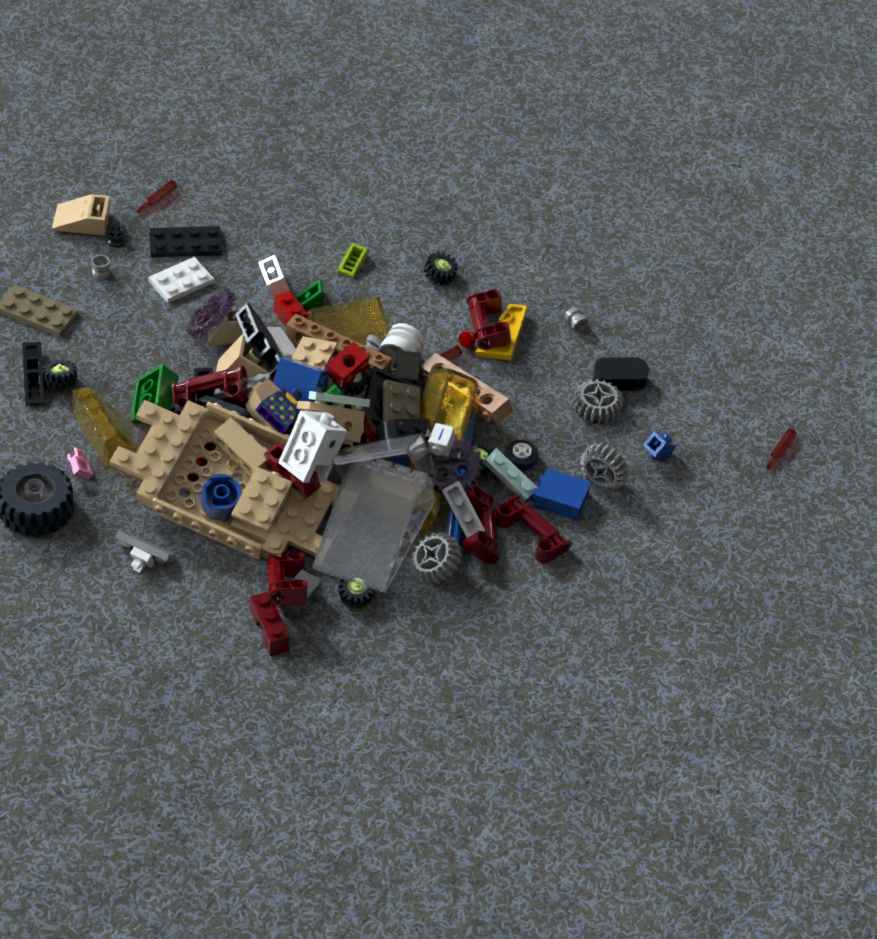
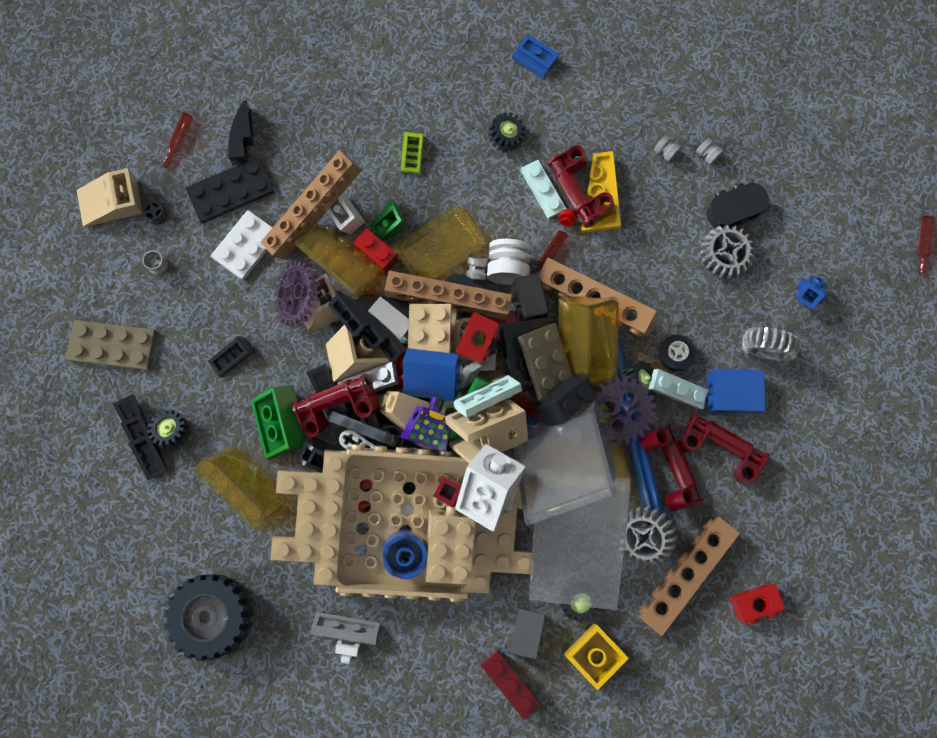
camera: 15 degrees left, 30 degrees up
(79, 465) = (236, 545): bright pink plate -> none
(132, 341) = (248, 351): none -> black slope
(212, 207) = (240, 135): none -> black slope
(240, 446) = (403, 483): tan brick -> none
(249, 292) = (340, 259): none -> clear yellow slope
(251, 259) = (311, 205): none -> medium nougat brick
(289, 591) = (500, 634): dark red piece -> none
(352, 625) = (596, 656): none -> yellow brick
(441, 439) = (608, 397): white brick -> none
(454, 315) = (543, 189): none -> light aqua plate
(460, 602) = (725, 536): none -> medium nougat brick
(463, 509) = (654, 464): light grey plate -> none
(489, 228) = (535, 56): none -> blue plate
(513, 638) = (770, 603): none -> red brick
(613, 331) = (709, 151): none -> light grey wheel

